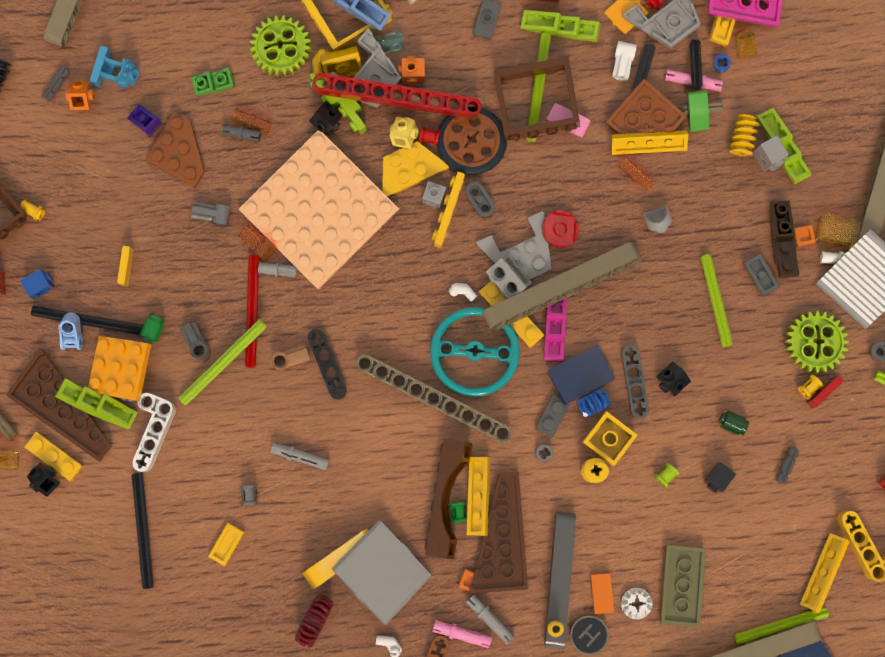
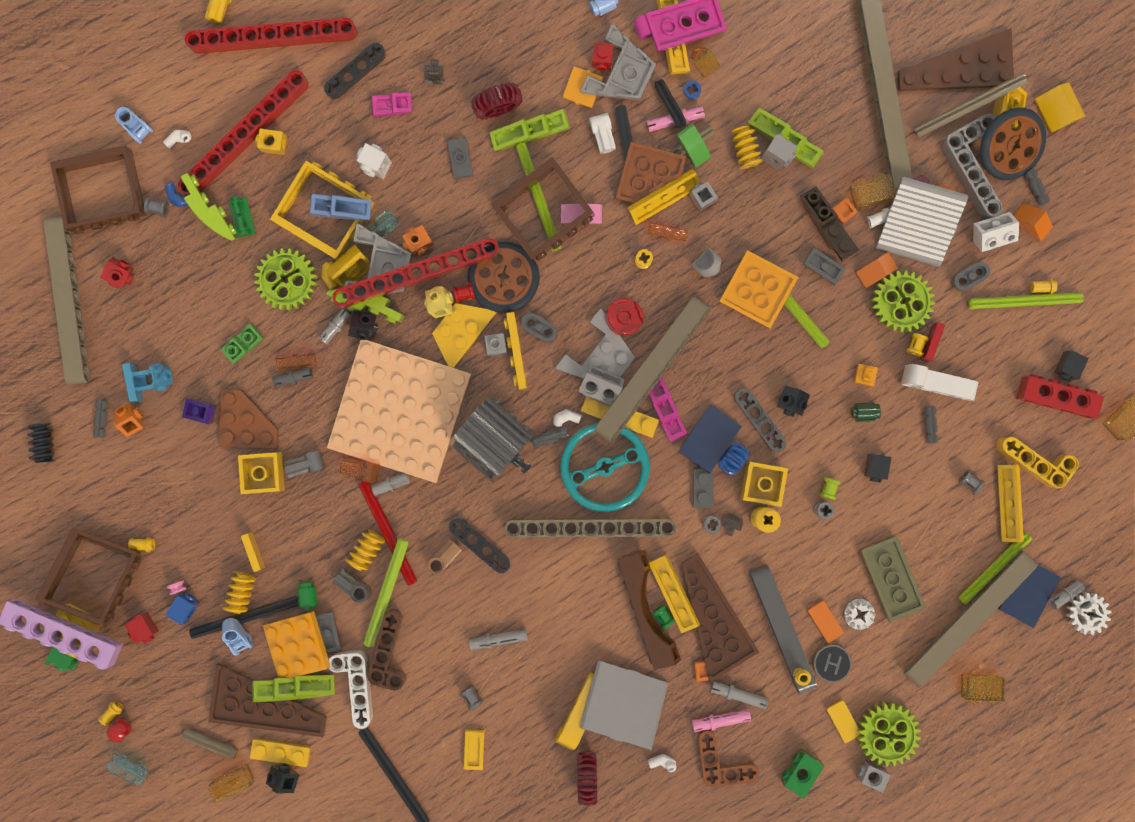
camera: 25 degrees left, 5 degrees up
(42, 263) = (176, 587): none -> bright pink bush
(94, 295) = (240, 592): none -> yellow piece
(154, 371) = (329, 631): none -> dark grey plate
(170, 200) = (261, 473): none -> yellow brick
(199, 414) = (388, 648): none -> reddish brown beam
(224, 315) = (366, 550): none -> yellow piece
(301, 107) = (334, 326): none -> light grey pin
(387, 273) = (492, 439): none -> dark grey piece
(438, 300) = (549, 437): none -> dark grey axle
(562, 459) = (731, 522): none -> clear smoke tile
(608, 185) = (647, 254): none -> yellow bush
(657, 490) = (826, 515): none -> flat silver bush
(684, 158) = (703, 196): none -> light grey brick
(692, 264) = (759, 289): none -> light orange plate
(750, 390) = (865, 375): none -> light orange tile
(798, 535) = (971, 482): none -> flat silver bush
(799, 419) = (940, 383): none -> white beam
(807, 302) = (876, 270): none -> orange slope

